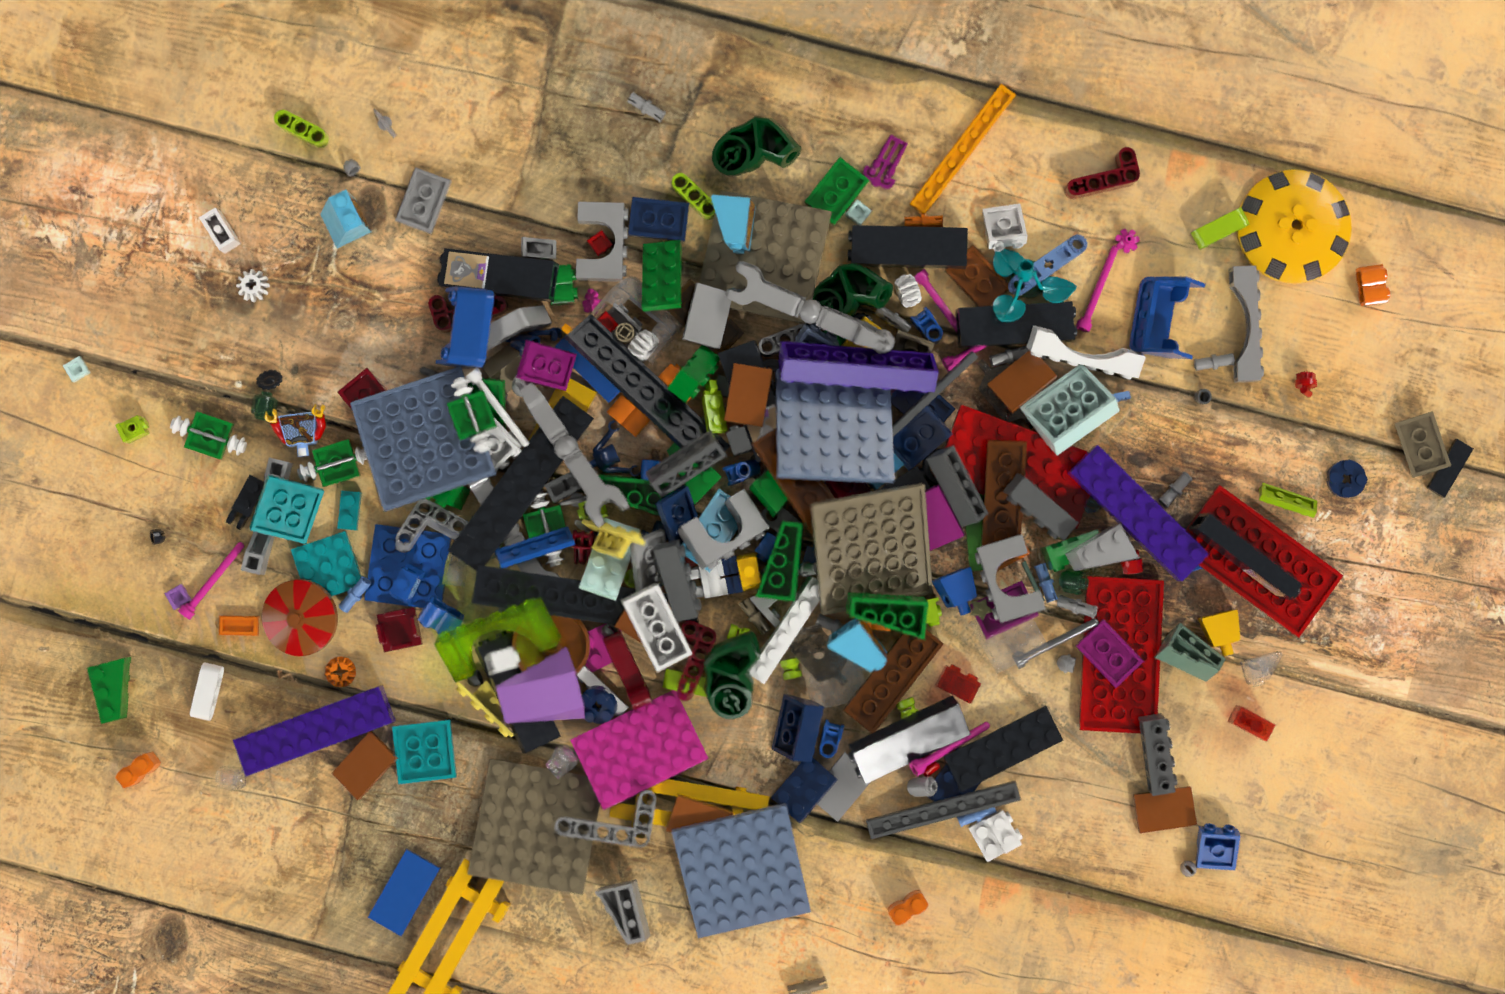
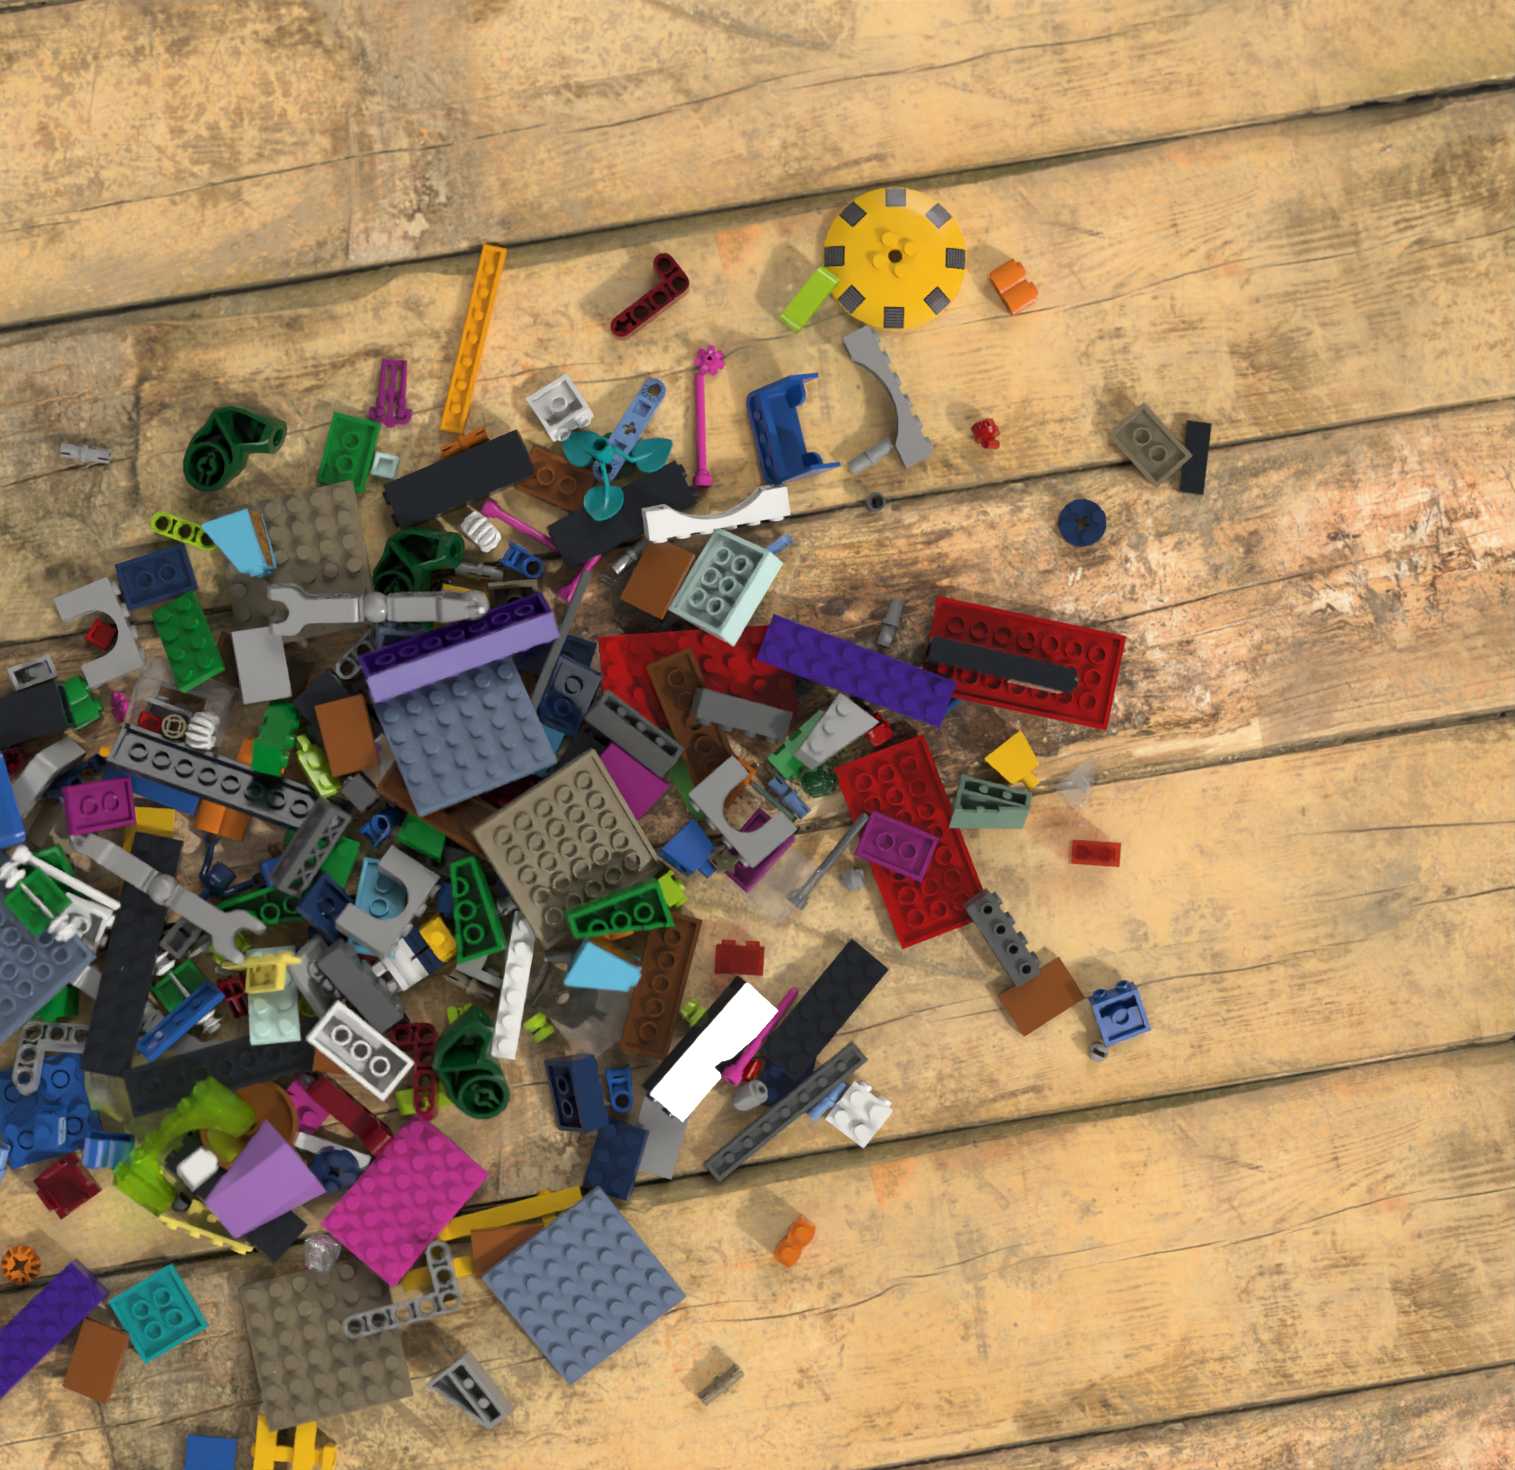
camera: 25 degrees left, 0 degrees up
(1077, 606) = (836, 808): light grey pin -> none
(1288, 500) = (1025, 577): lime plate -> none

